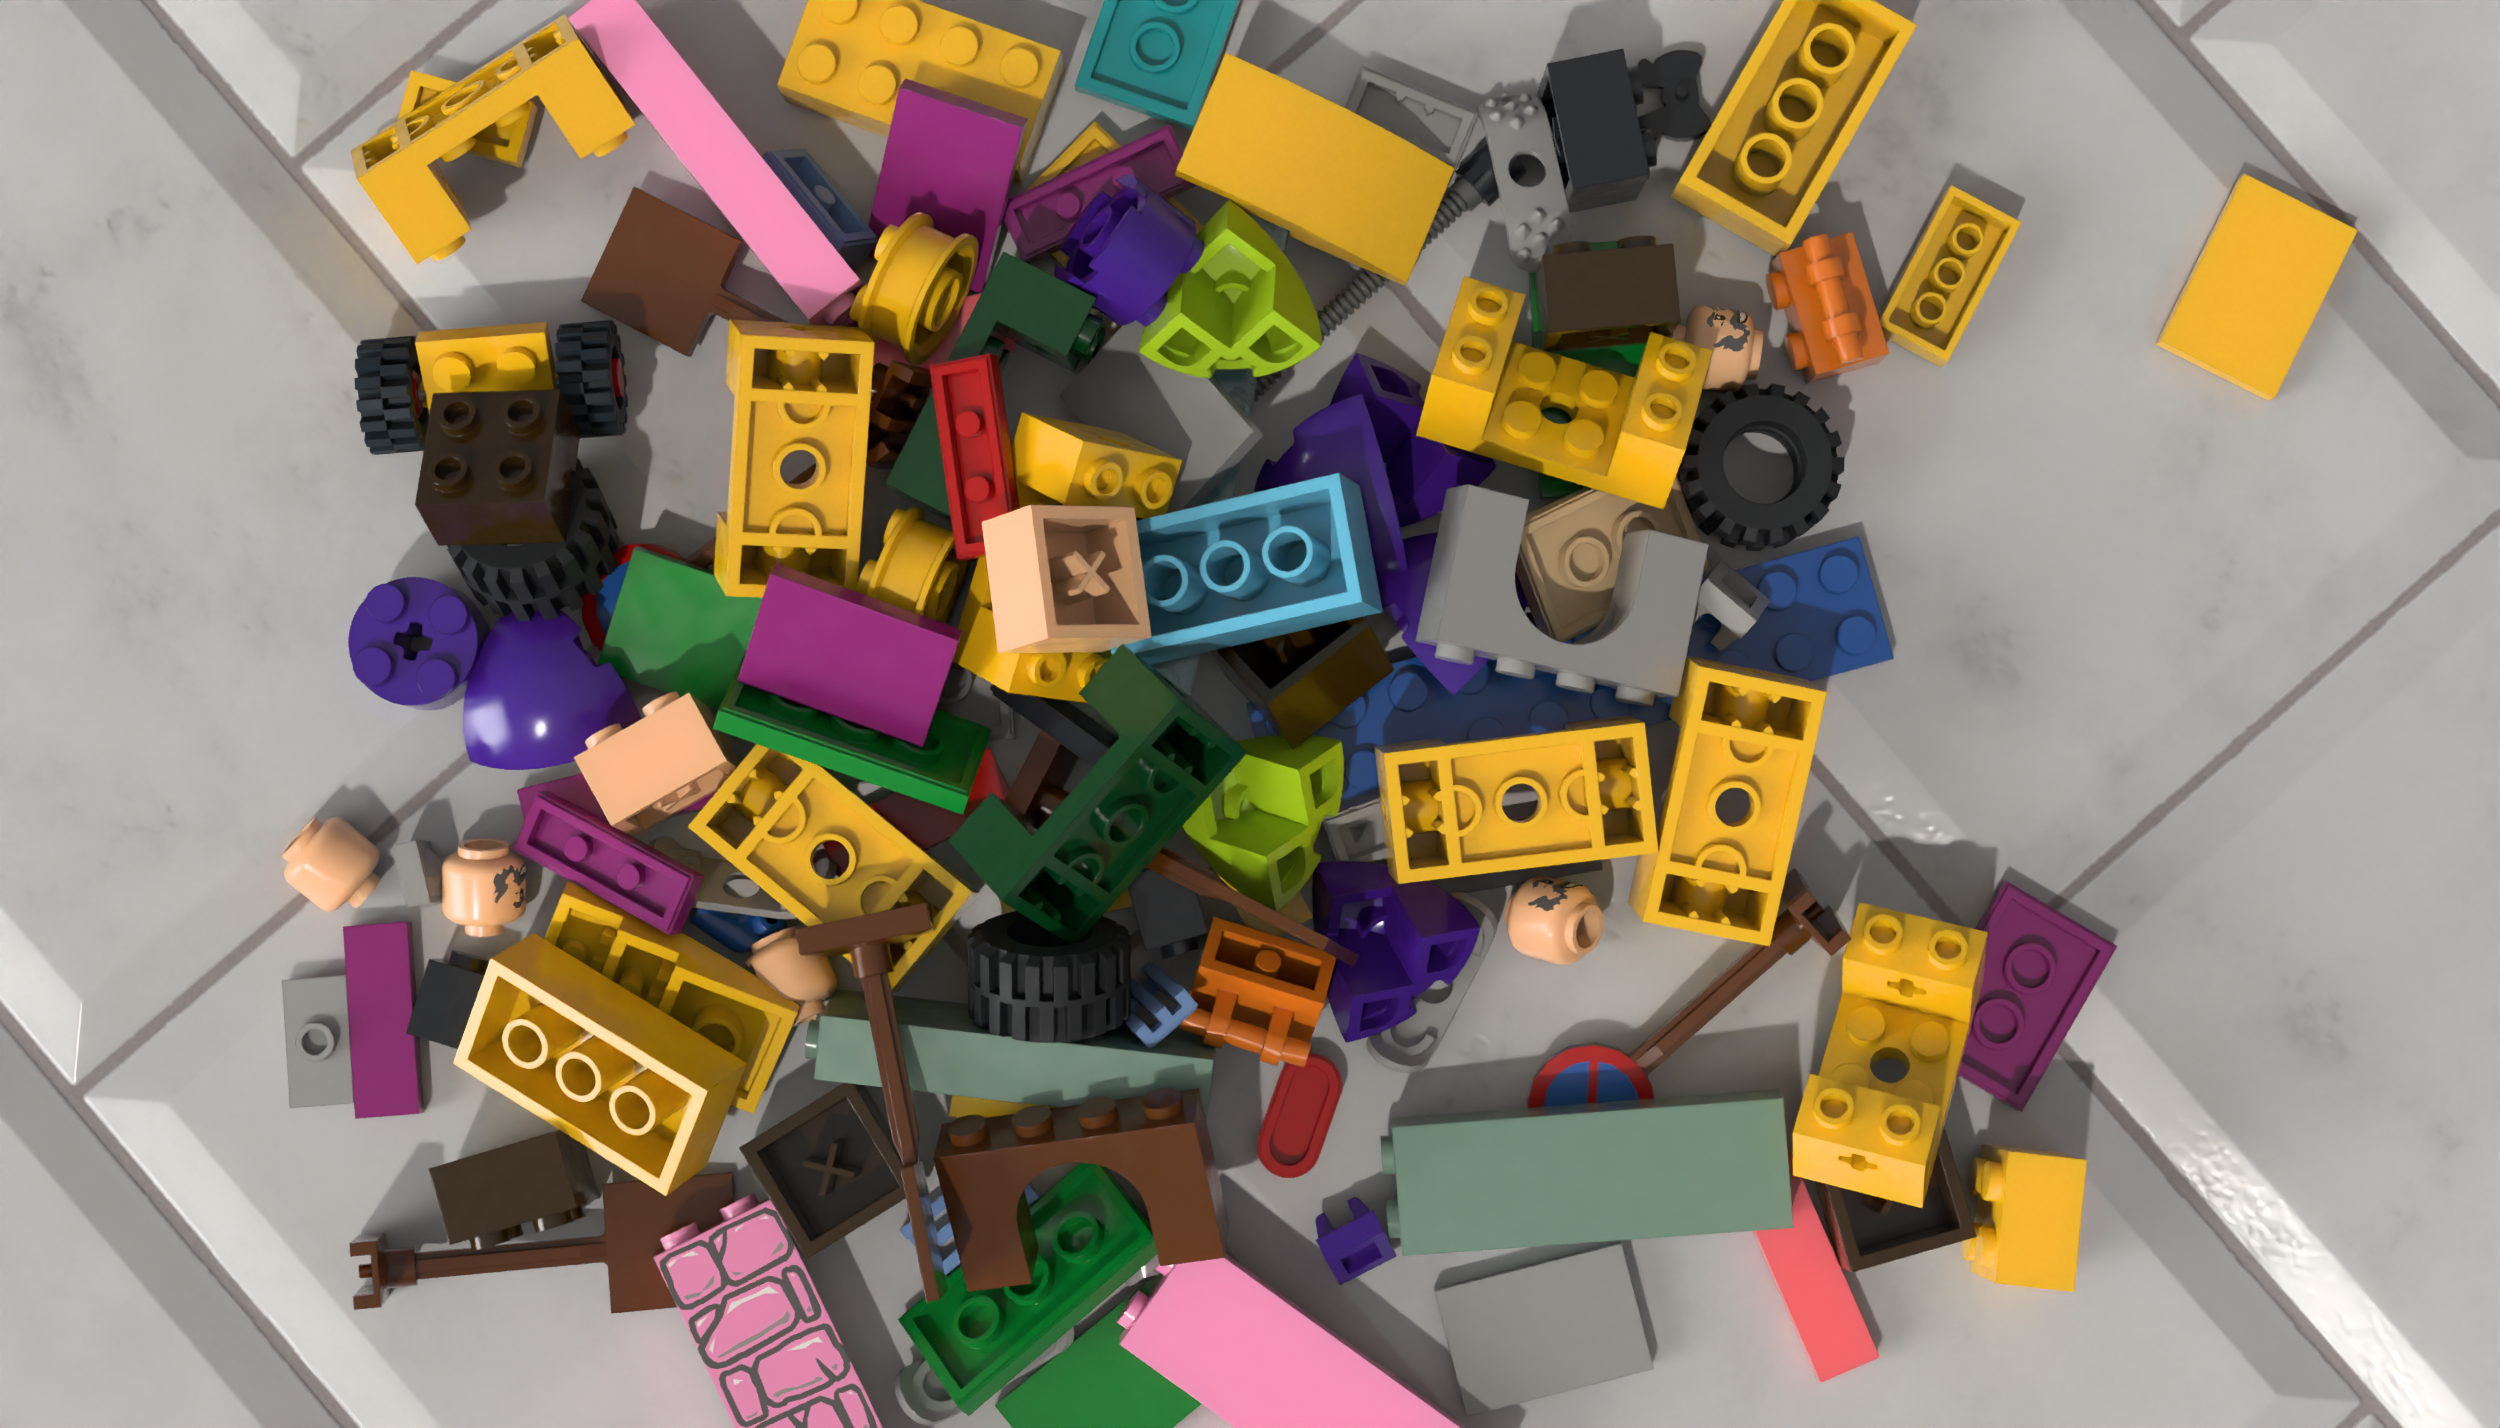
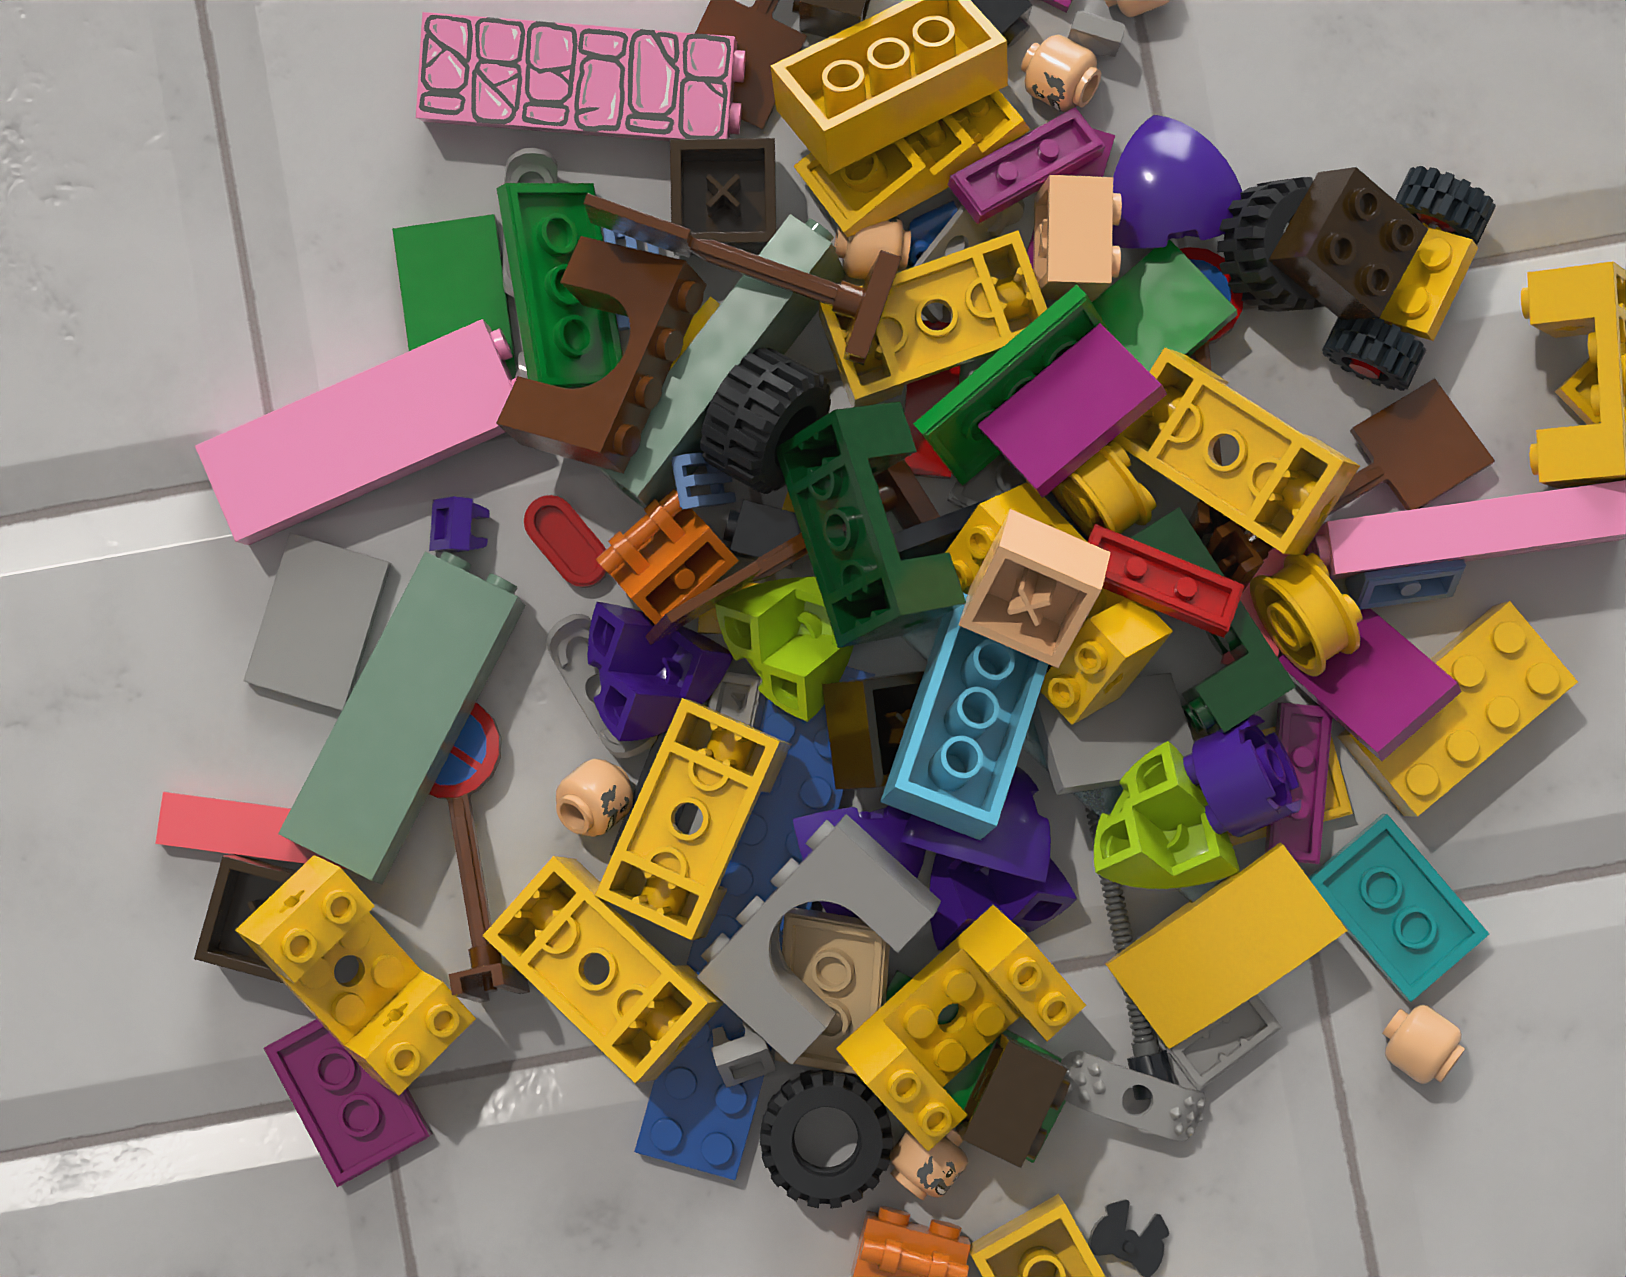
camera: 115 degrees right, 0 degrees up
(383, 638) = (1275, 103): dark purple brick -> none
(1597, 129) = (1137, 1166): black brick -> none
(2026, 1217) = (186, 1004): yellow brick -> none

